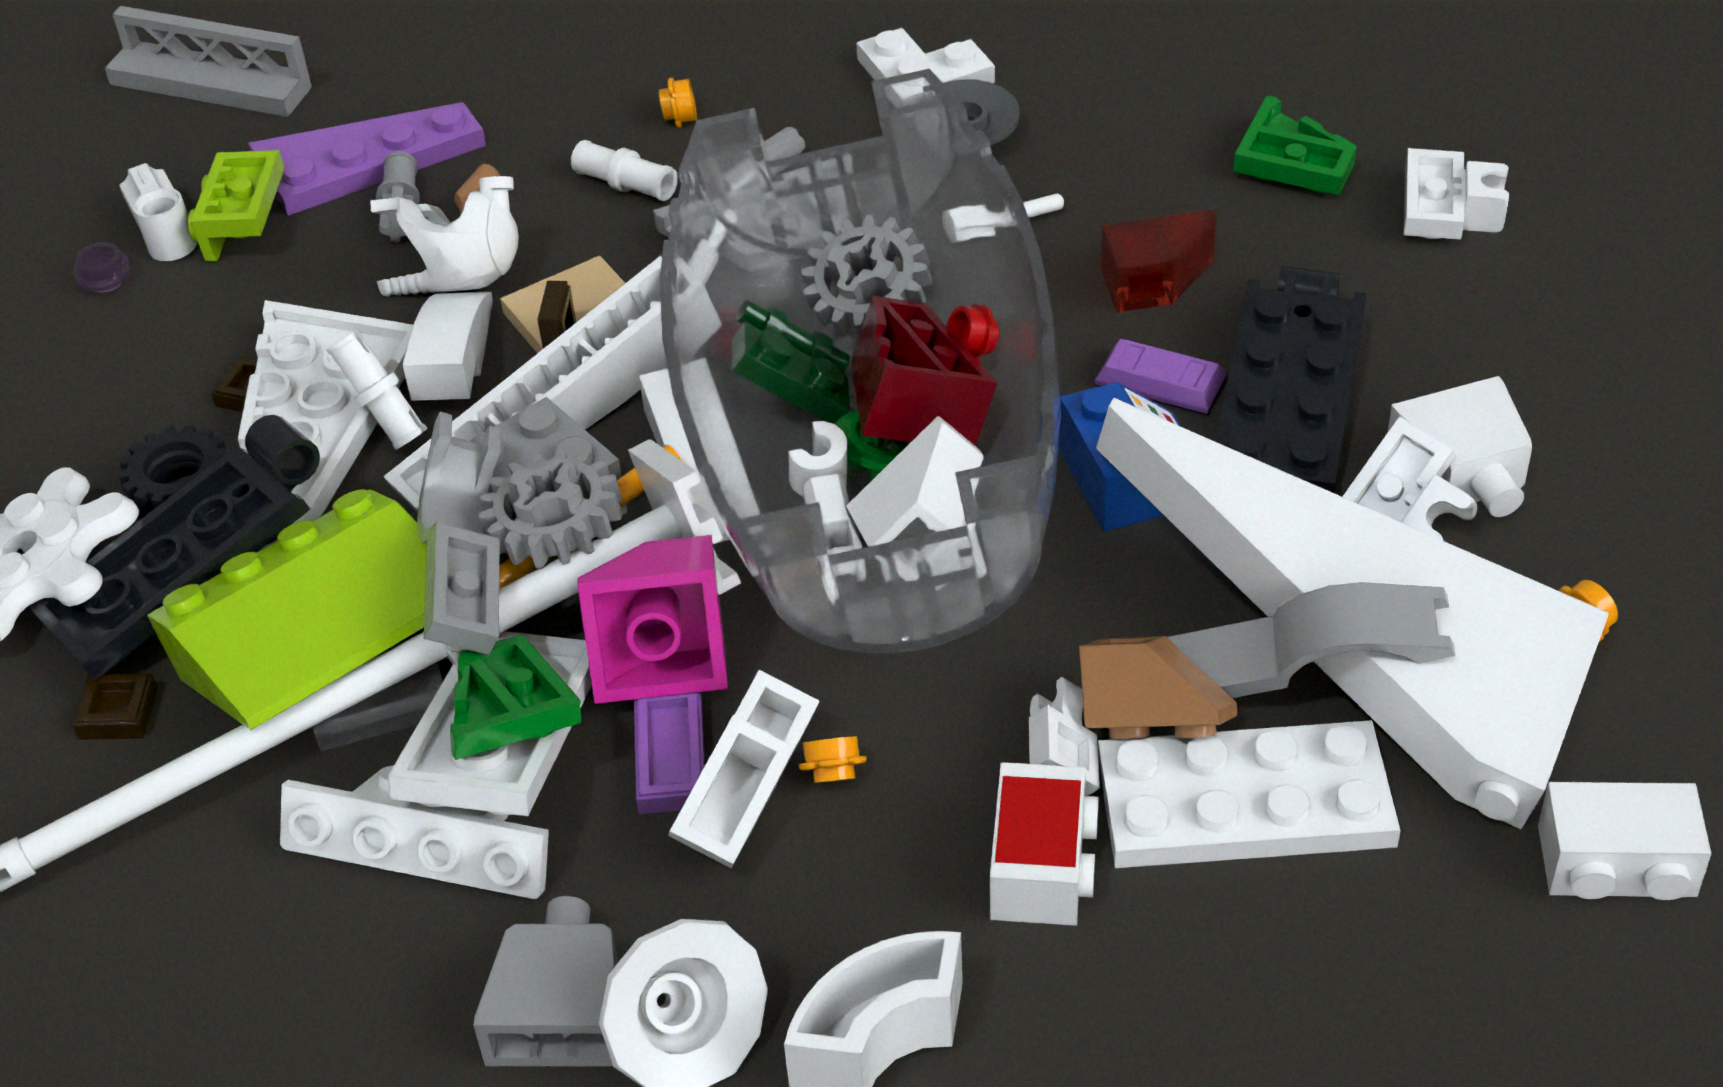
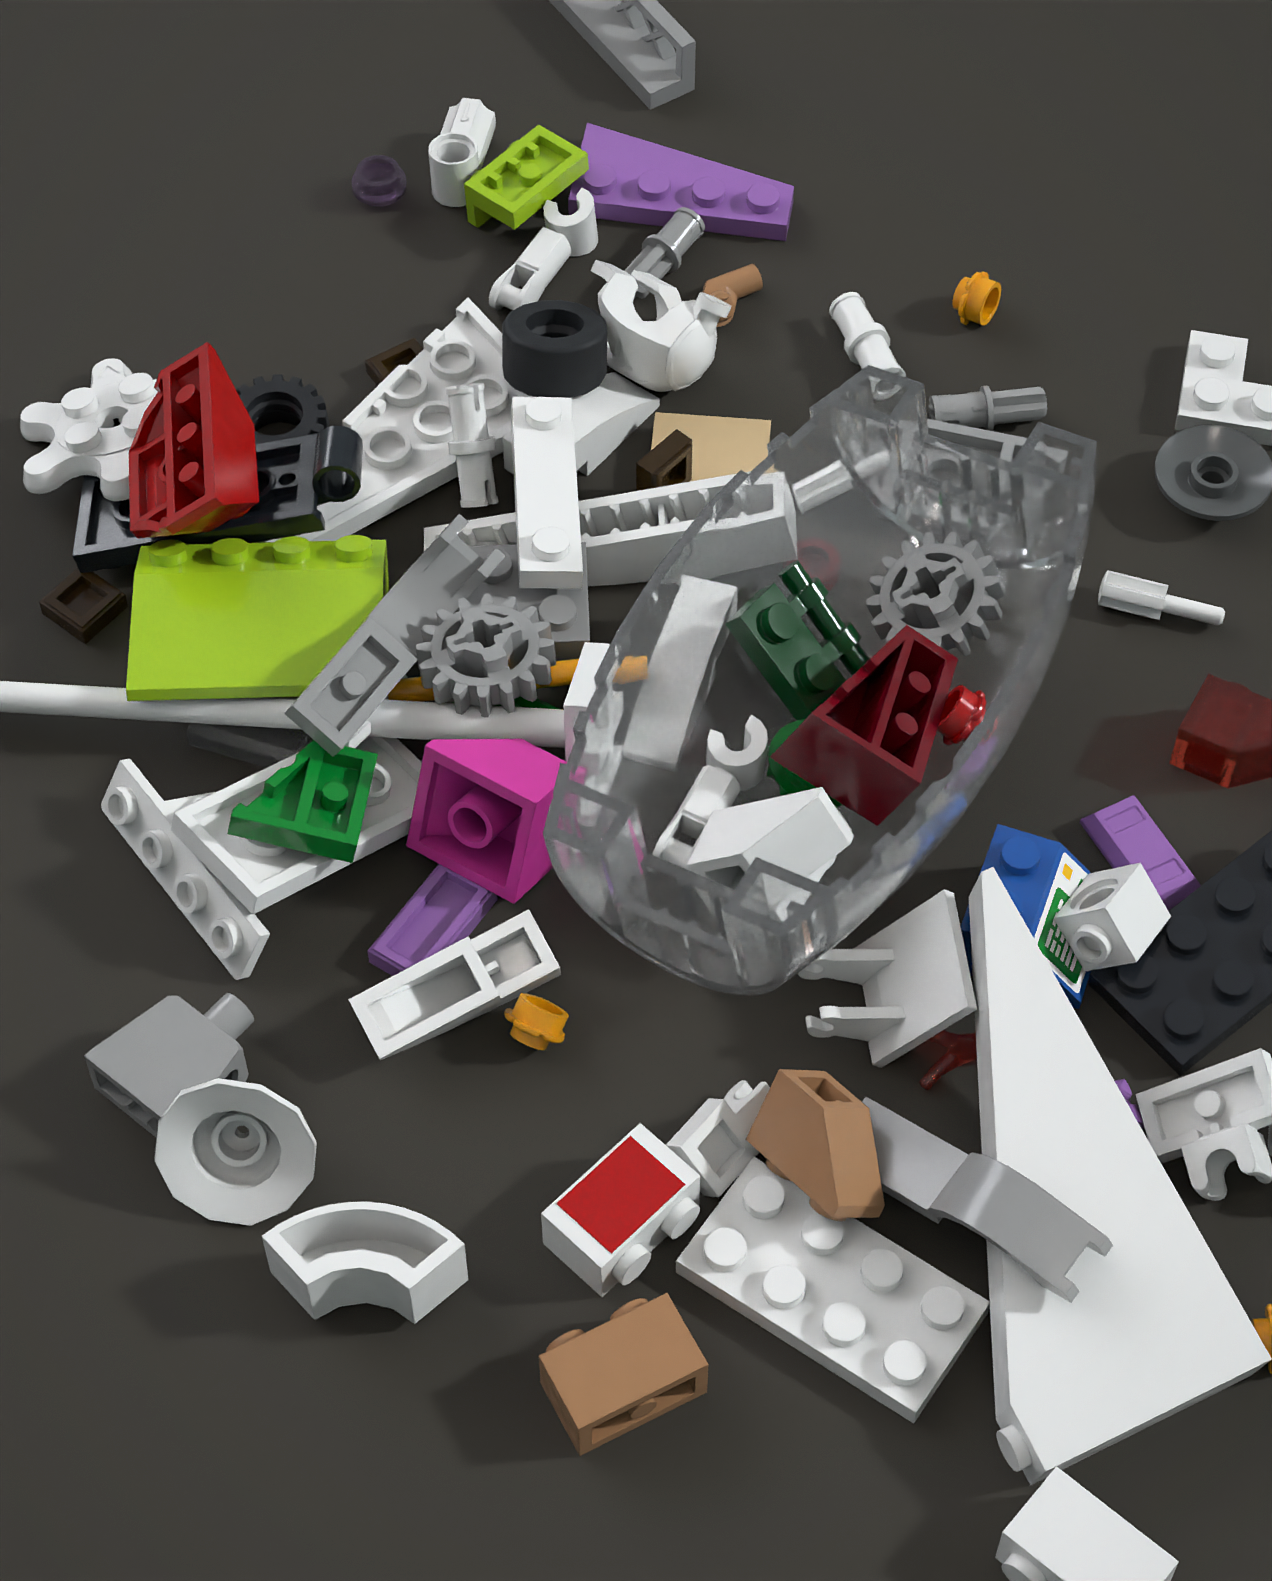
camera: 35 degrees right, 10 degrees up
(137, 512) = (192, 452): none -> red wedge
(302, 229) = (547, 253): none -> white piece
(387, 284) = (554, 349): none -> black tyre
(485, 376) = (546, 493): none -> white plate
(1100, 543) = (910, 978): none -> white plate
(1159, 956) = (622, 1372): none -> medium nougat brick
(1171, 574) = (961, 1051): none -> clear red bar
(1199, 404) = (1112, 917): none -> white brick

